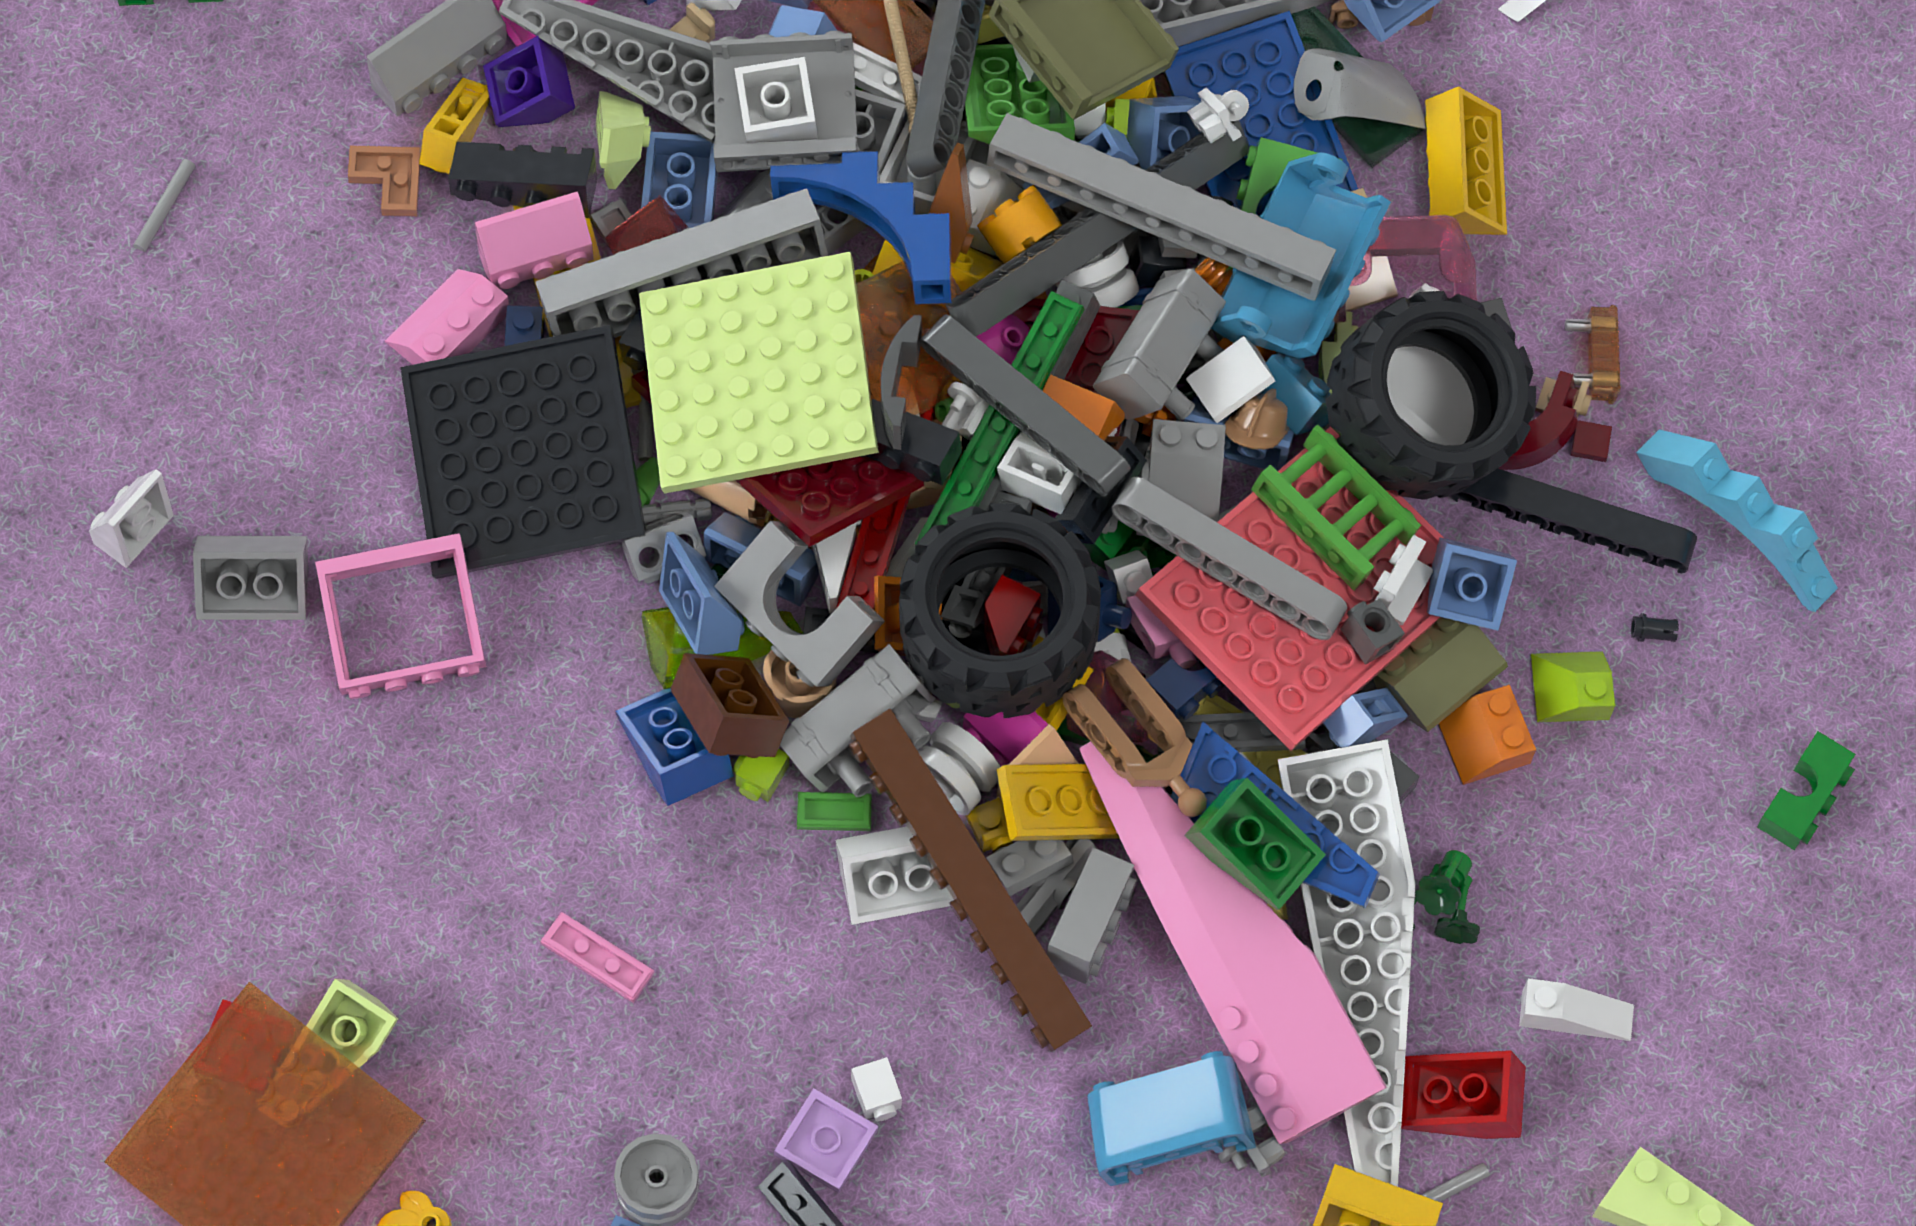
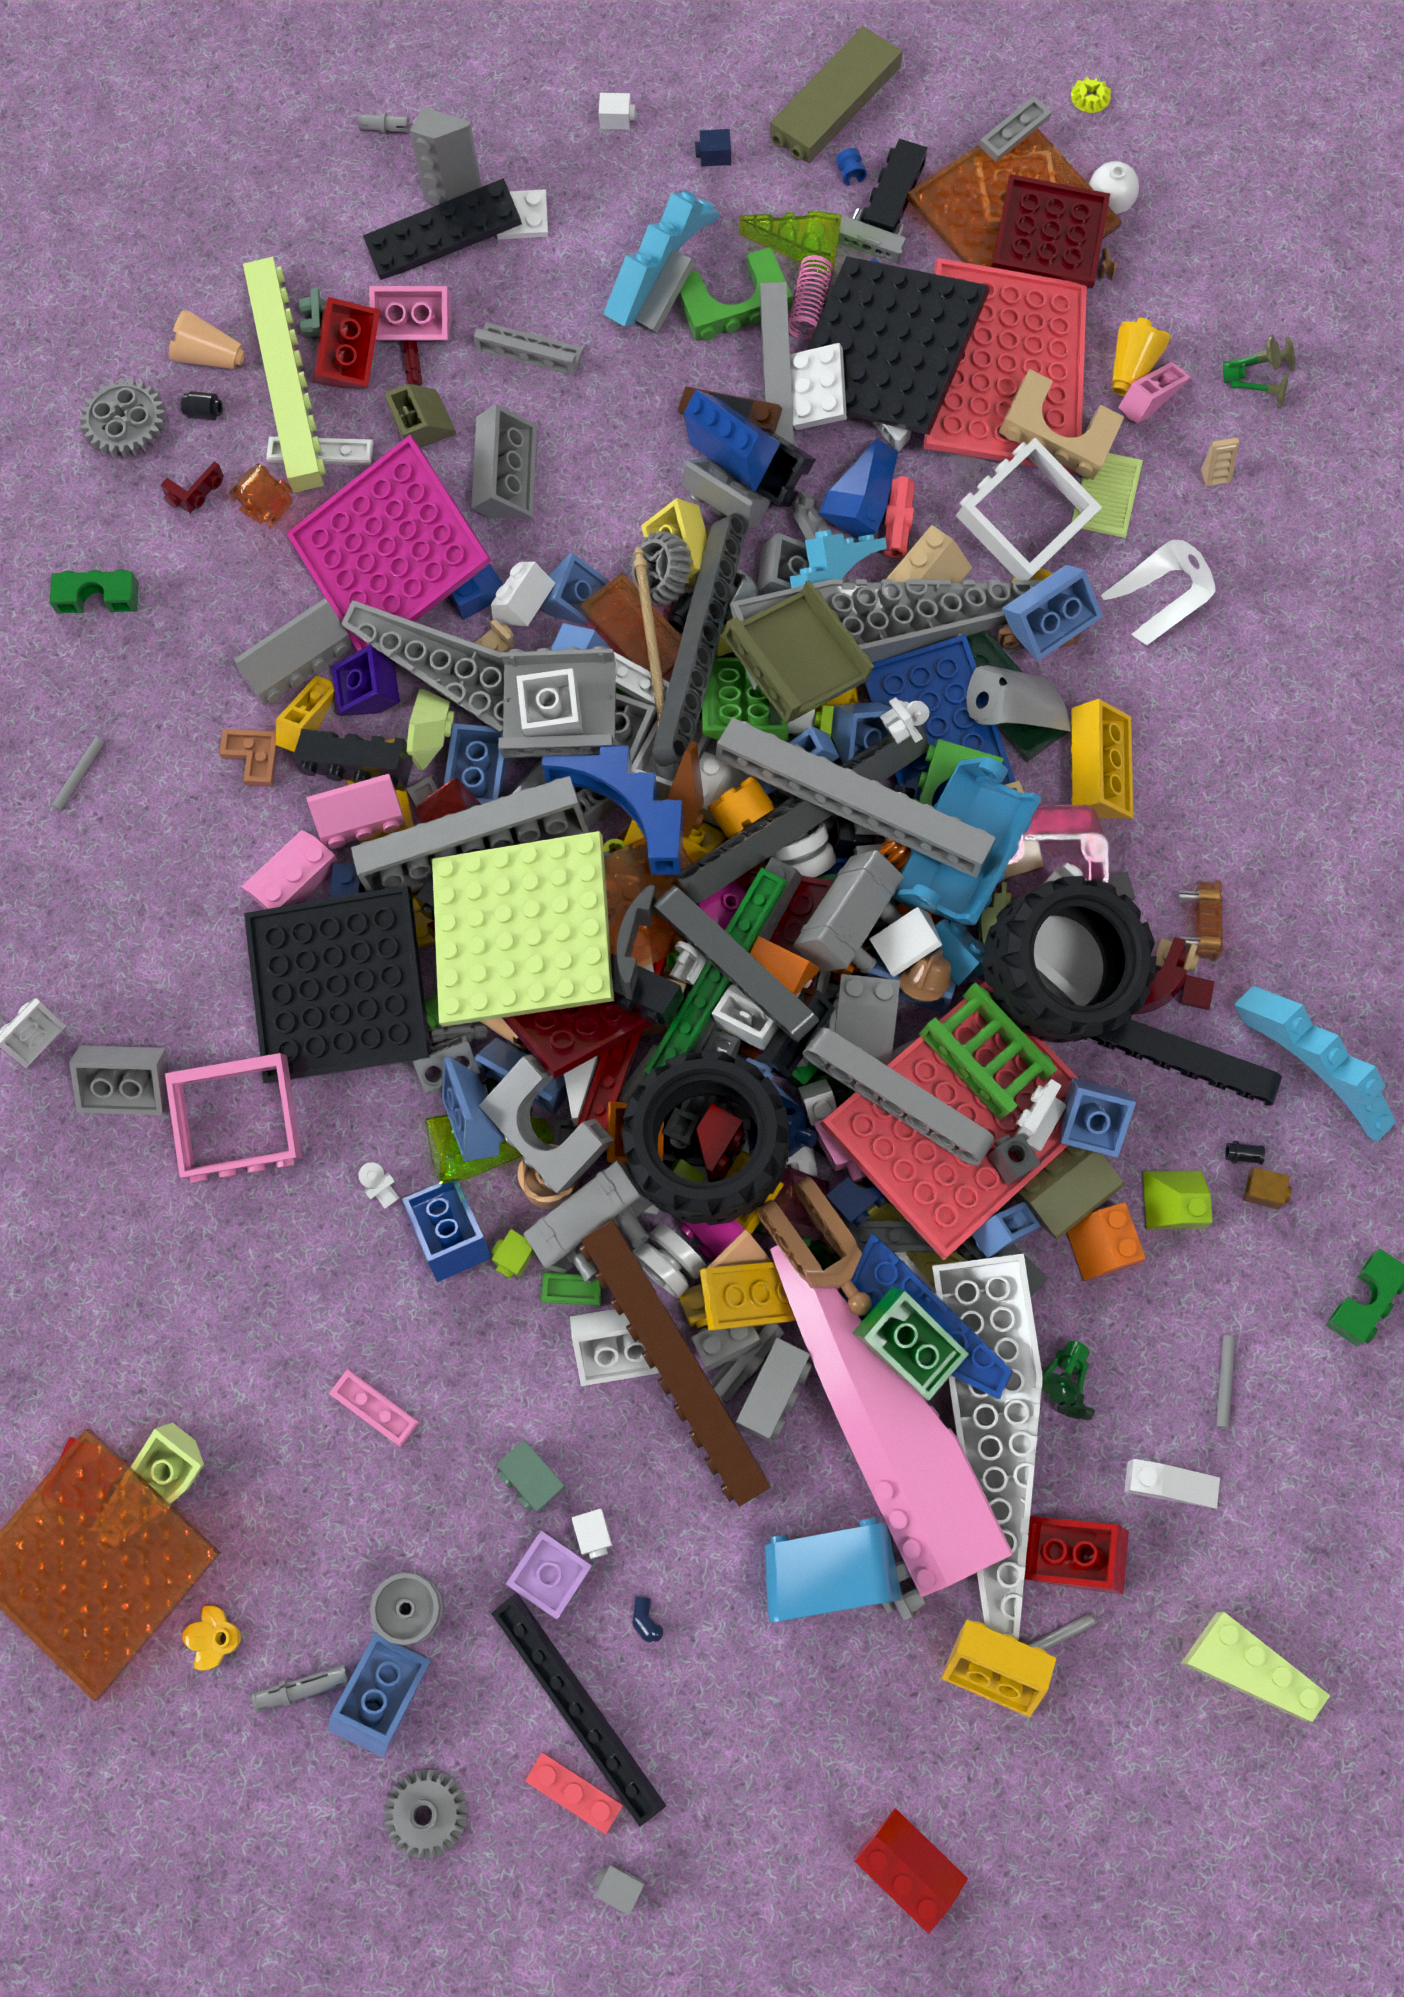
camera: 10 degrees right, 5 degrees up
(589, 692) = (377, 1184): none -> white hips
(729, 705) = (487, 1204): reddish brown brick -> none
(796, 1028) = (530, 1476): none -> sand green brick
(943, 1192) = (642, 1622): none -> dark blue arm
(1638, 894) = (1225, 1384): none -> light grey bar
(1682, 668) = (1267, 1188): none -> pearl gold brick

